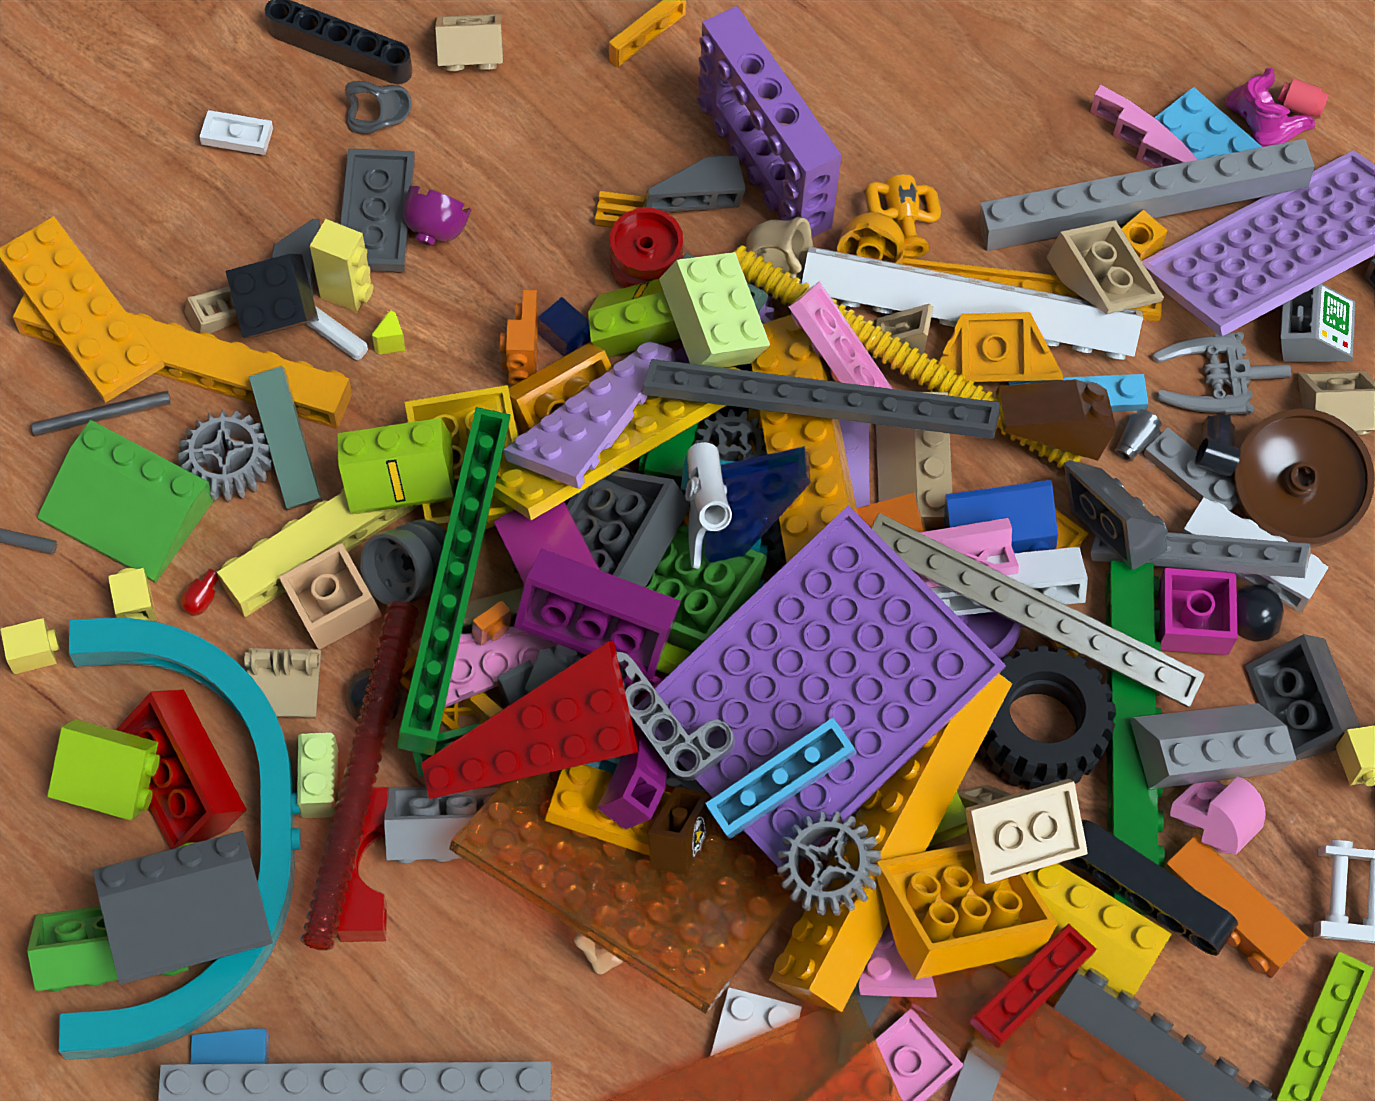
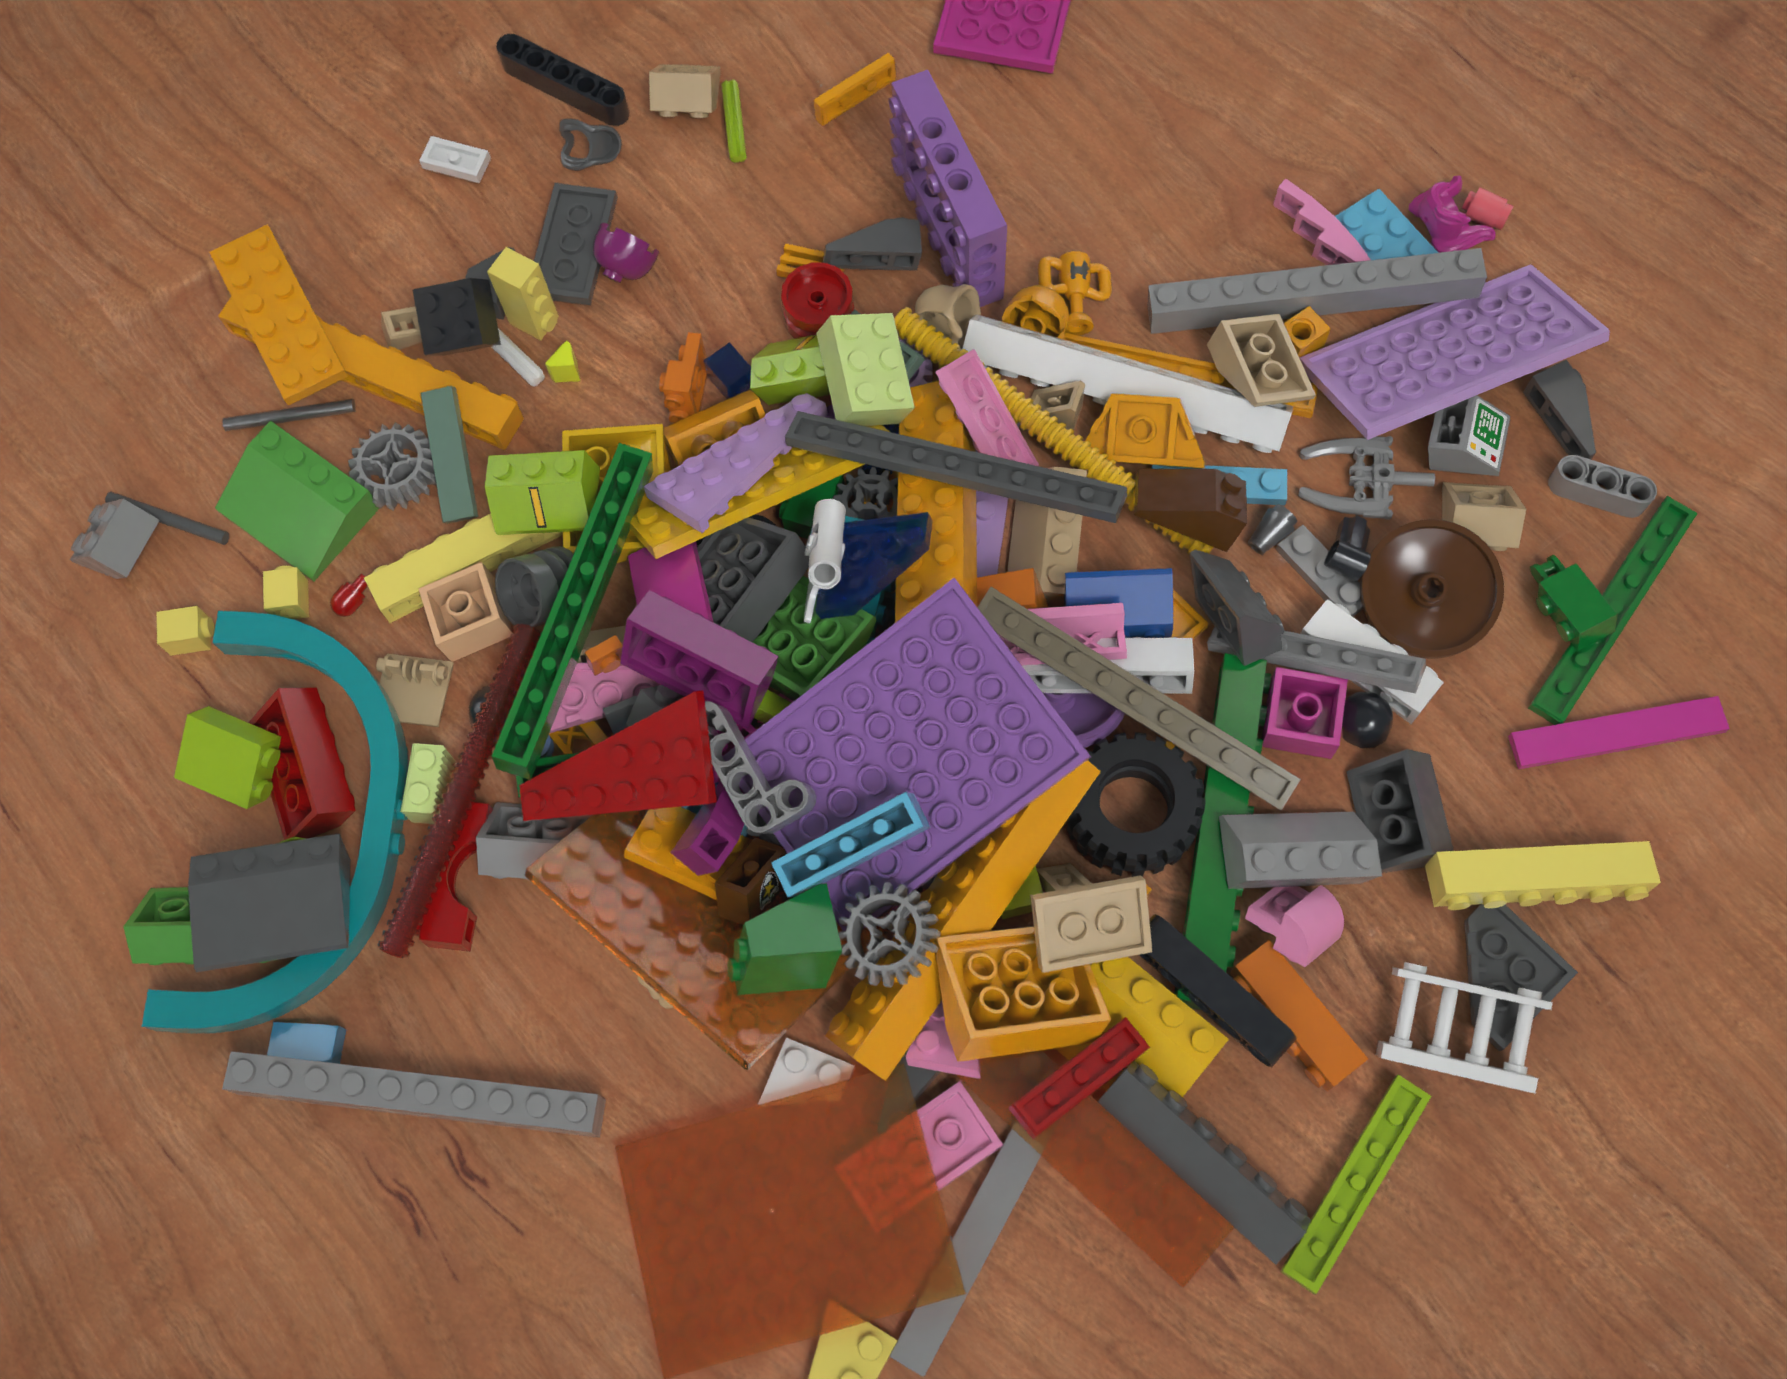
camera: 15 degrees right, 5 degrees up
(525, 69) = (733, 121): none -> lime axle
(731, 887) = (788, 946): none -> green slope

